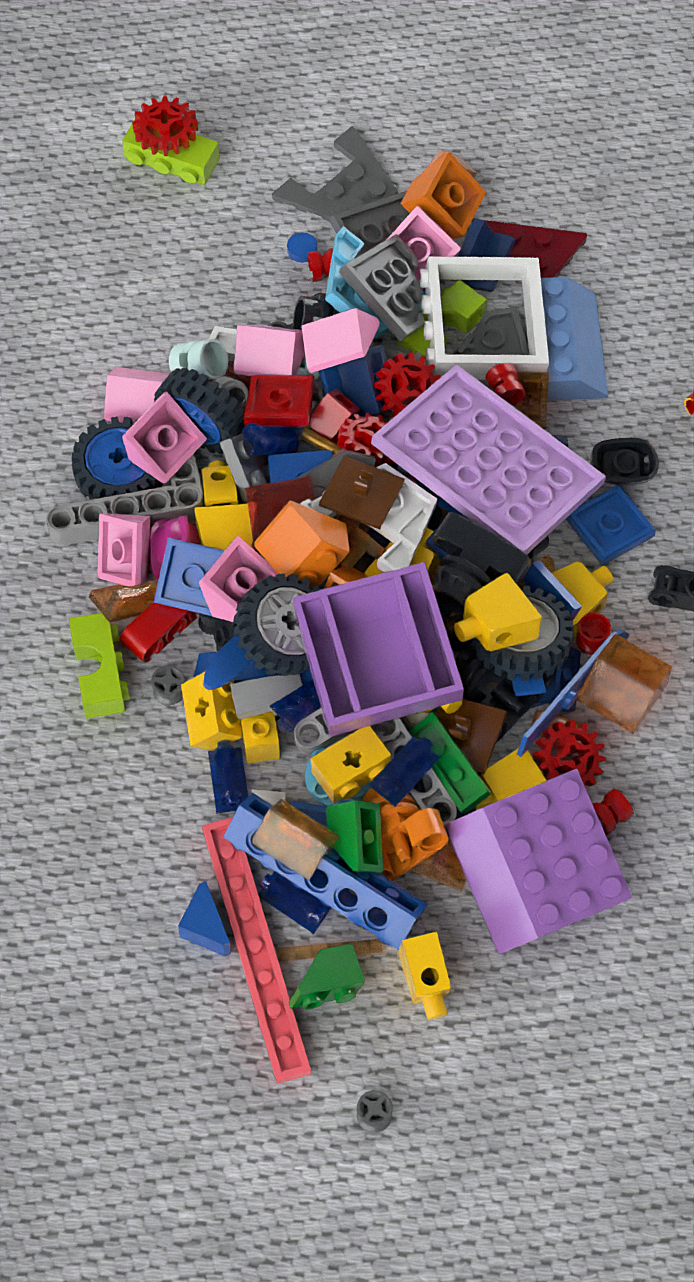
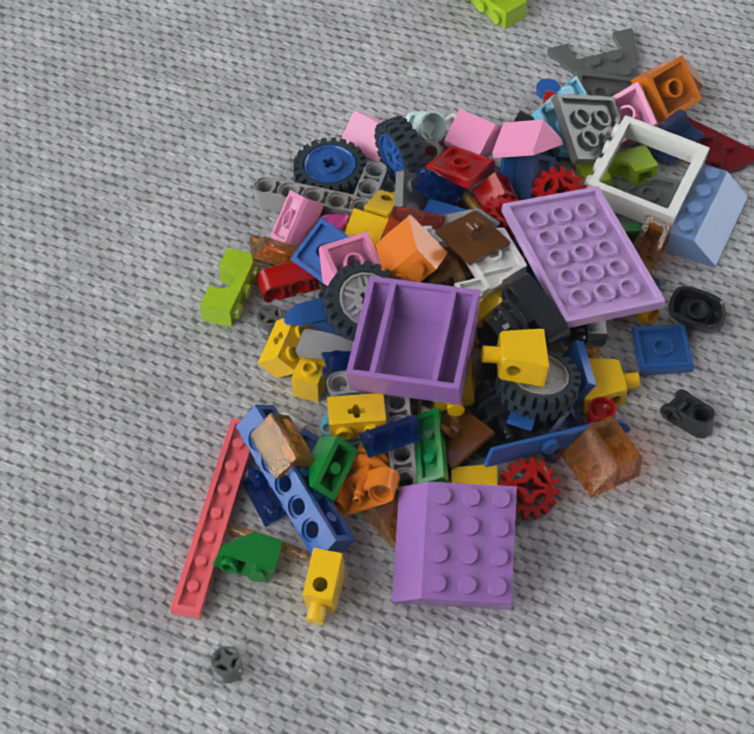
camera: 30 degrees right, 10 degrees down
(162, 439) = (362, 158): bright pink slope -> none
(203, 924) = (190, 480): blue slope -> none
(227, 776) = (276, 390): clear blue hinge -> none
(504, 382) = (632, 219): red wheel -> none
(612, 810) = (536, 541): red wheel -> none

